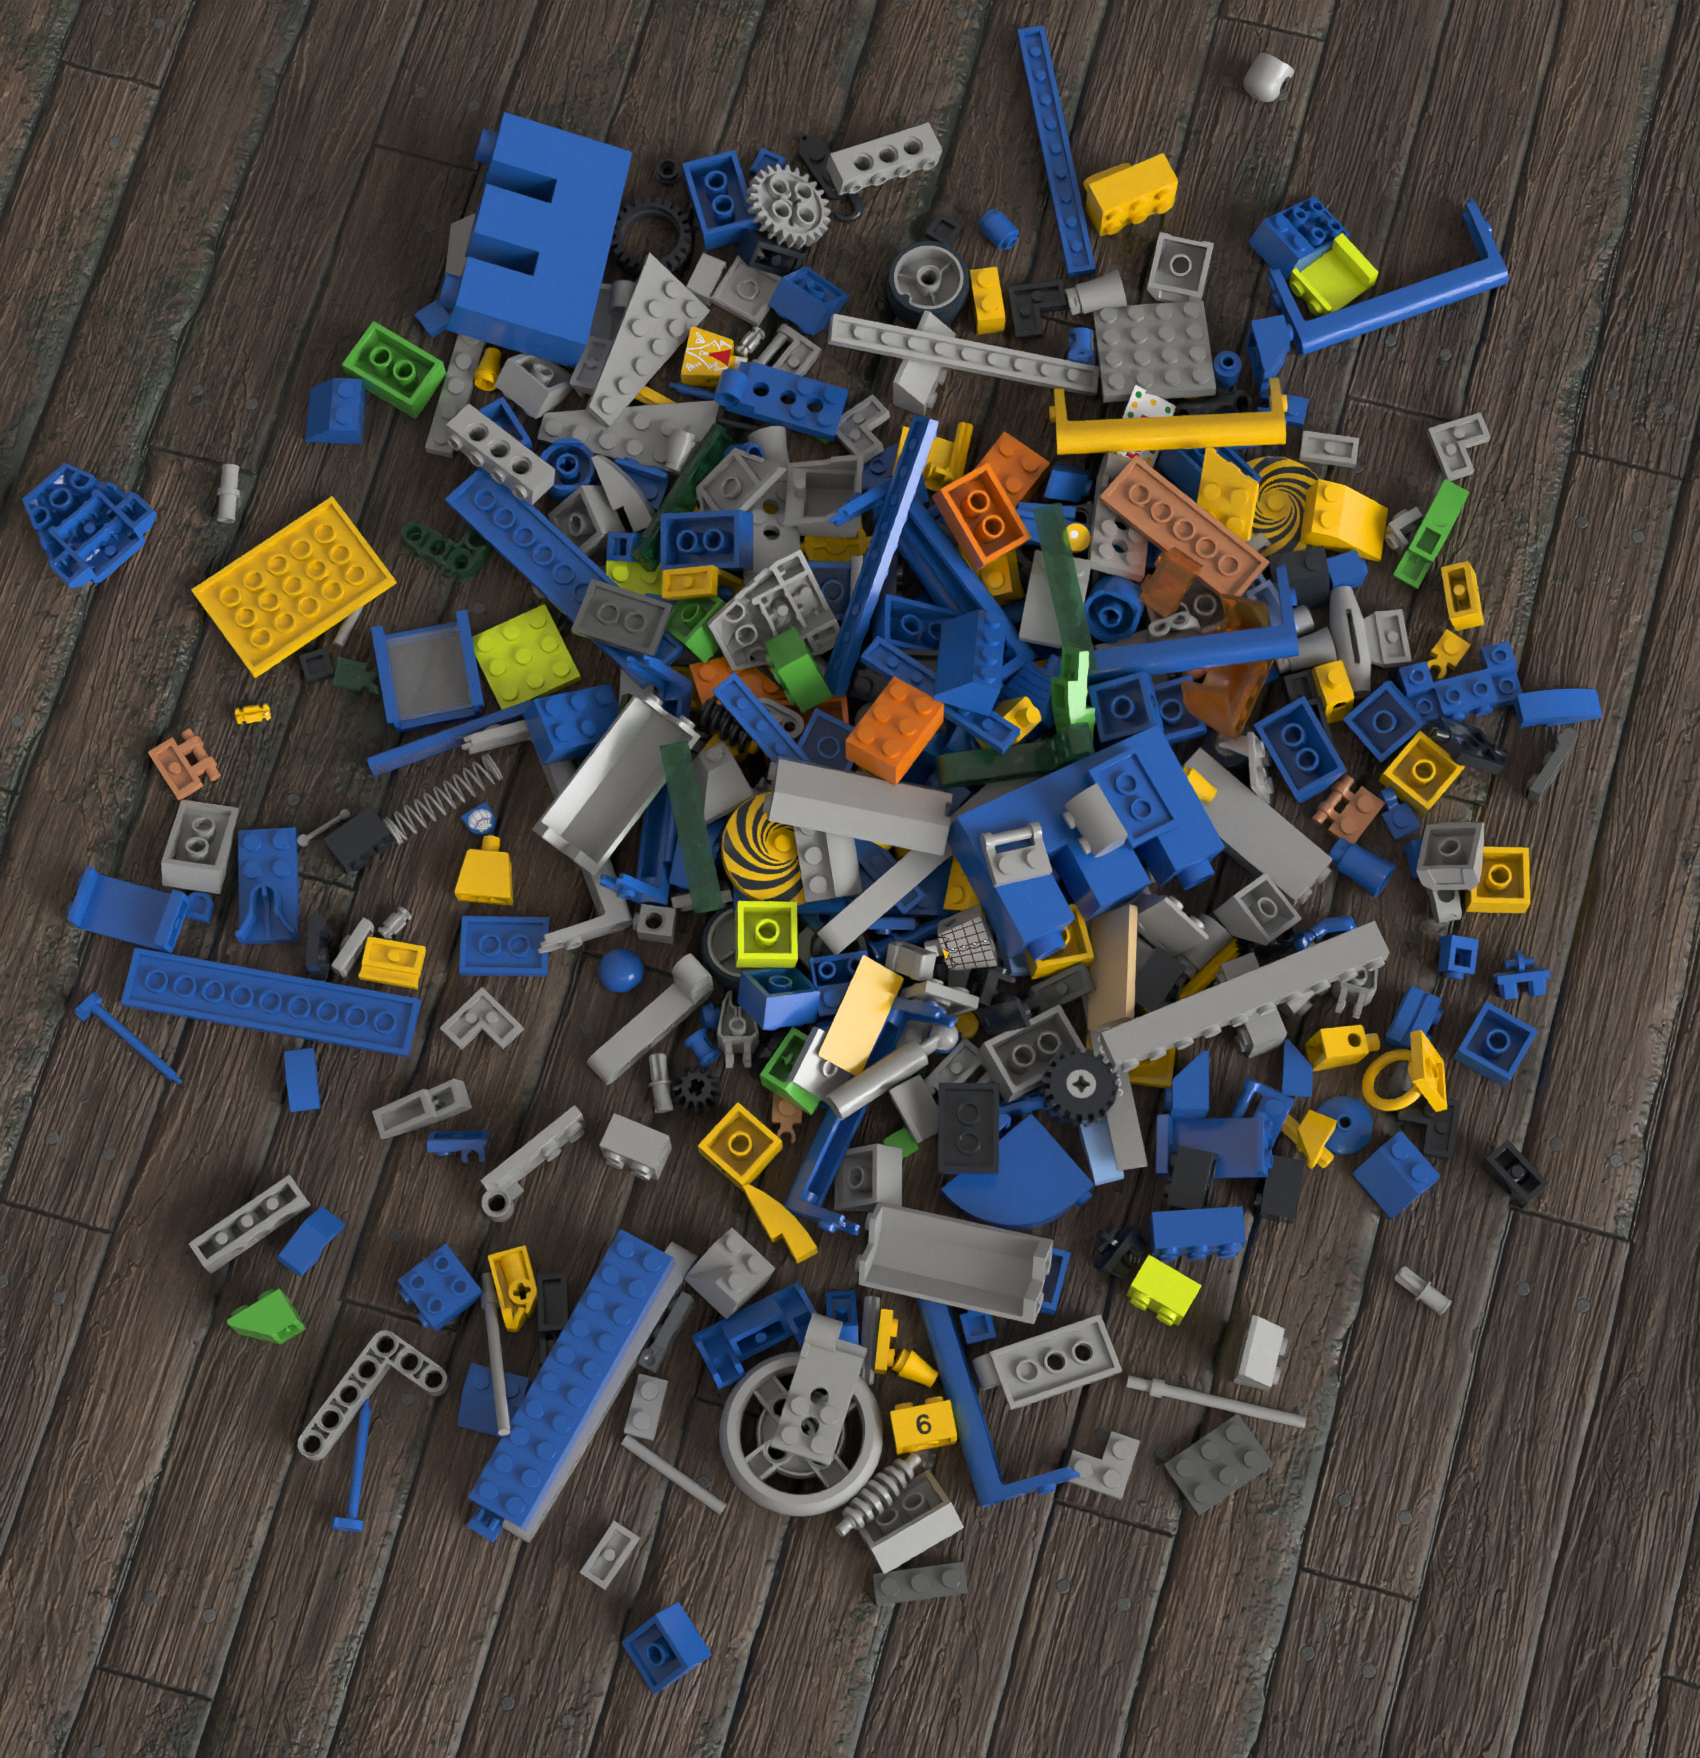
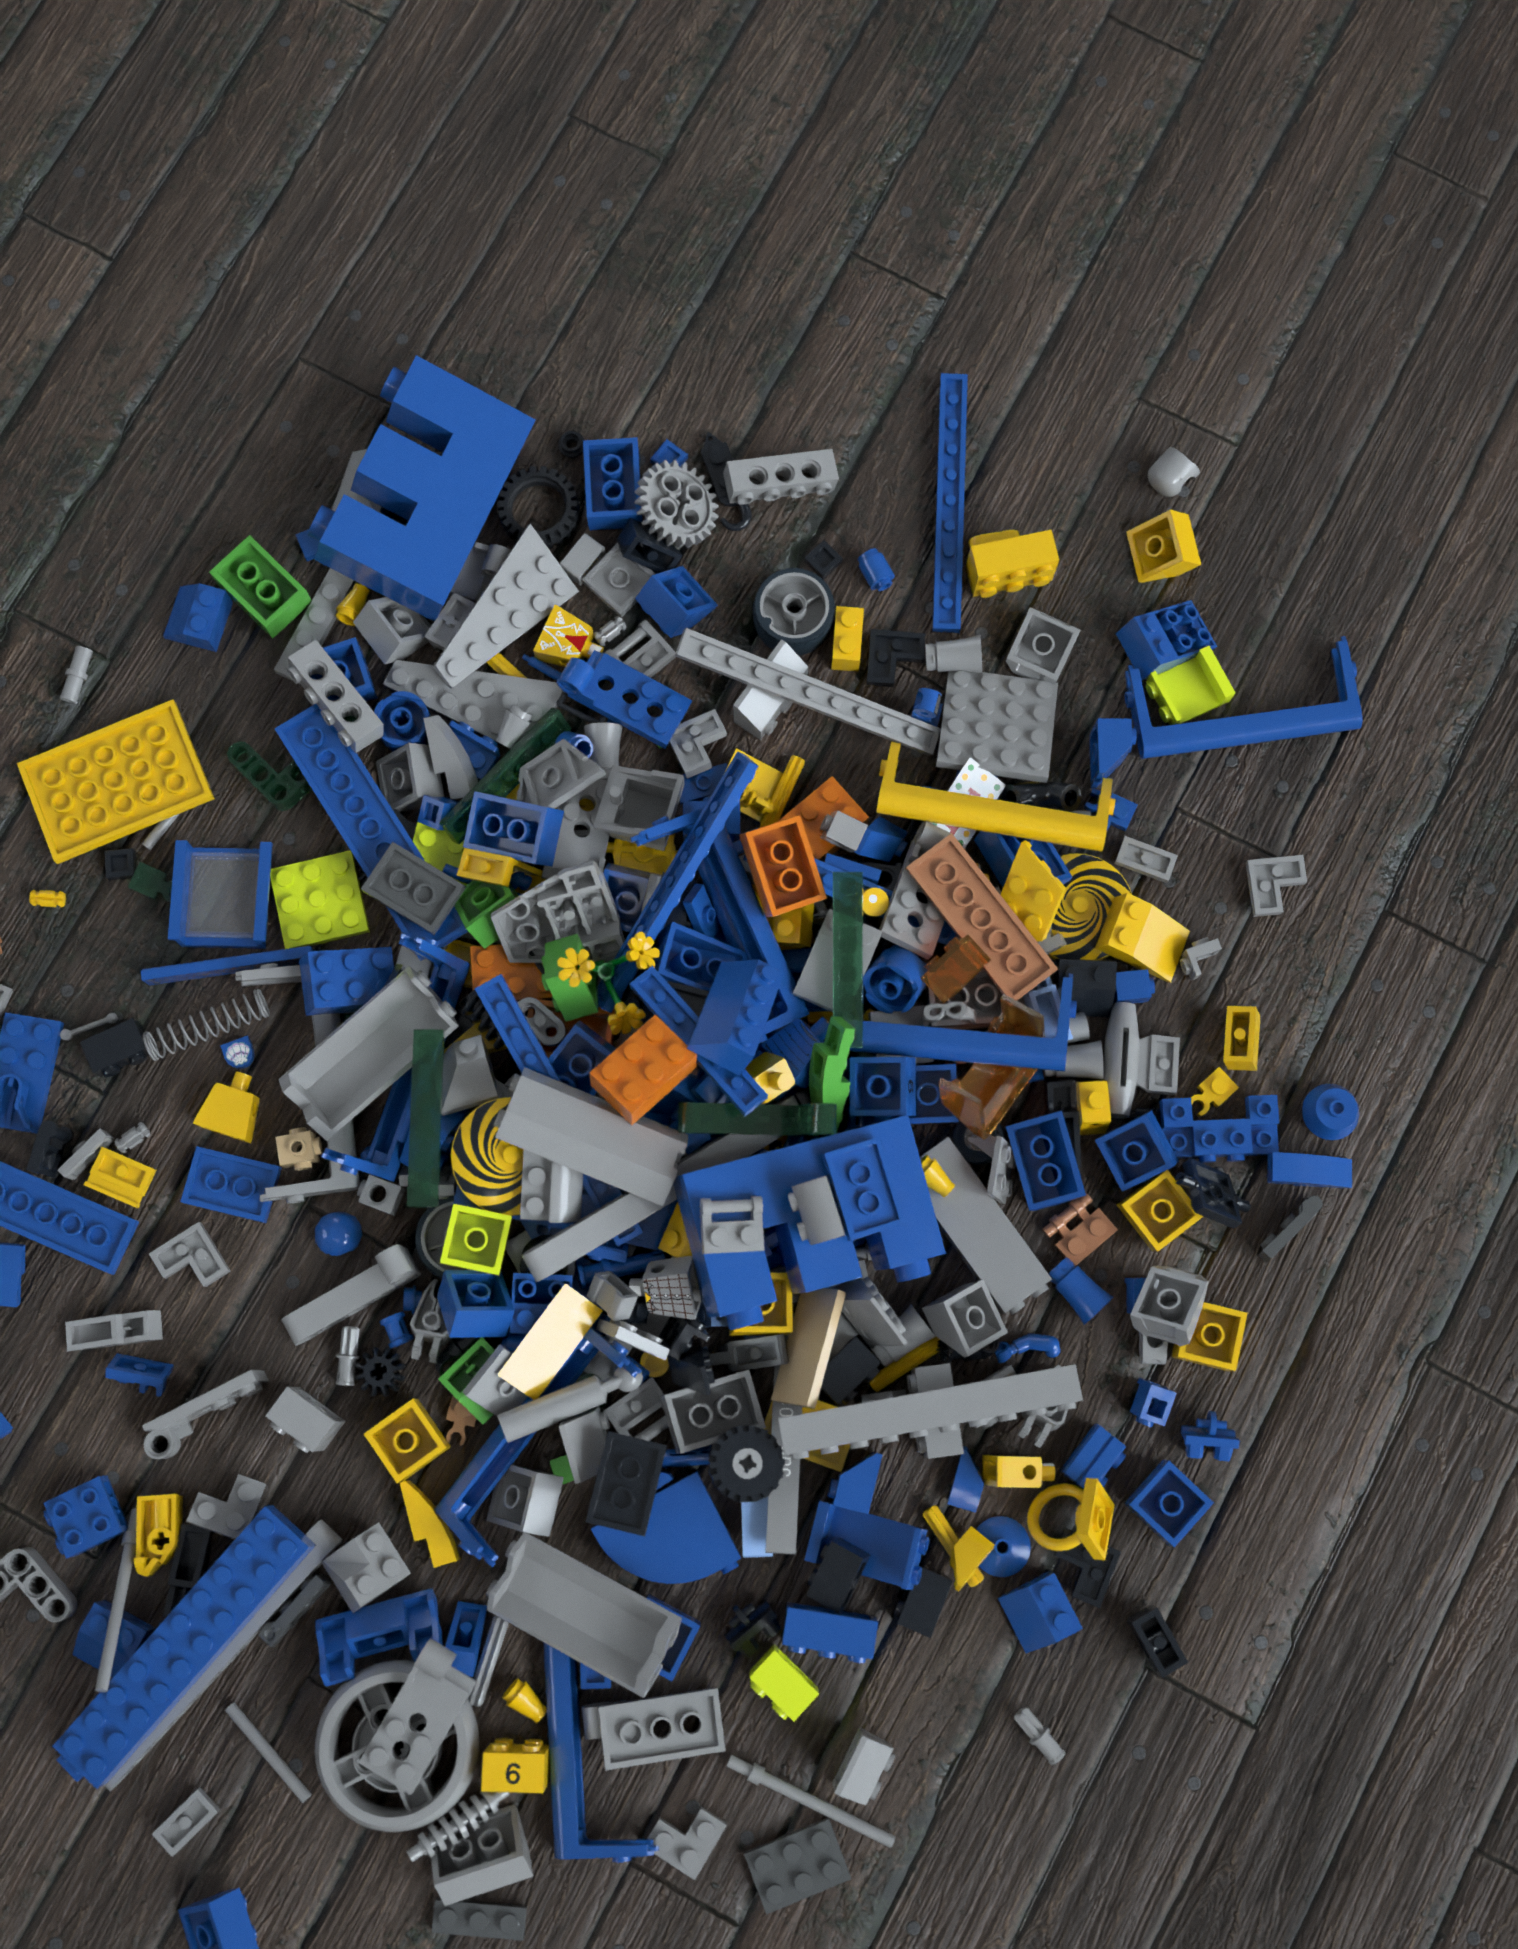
camera: 10 degrees right, 5 degrees up
(565, 896) = (289, 1146): none -> tan brick
(578, 1258) = (231, 1516): none -> light grey plate
(646, 1407) = (257, 1678): light grey plate -> none
(808, 649) = (578, 967): none -> yellow plant
(887, 1329) = (498, 1680): yellow plate -> none
(907, 581) = (701, 911): none -> blue plate
(1029, 478) = (842, 830): none -> light grey brick
(1226, 369) = (1062, 765): blue brick -> none
(1273, 1105) = (934, 1518): blue plate -> none
(1275, 150) = (1163, 547): none -> yellow slope
(1399, 818) = (1127, 1249): blue plate -> none
(1431, 534) = (1226, 967): bright green slope -> none
(1564, 648) = (1330, 1111): none -> blue cone

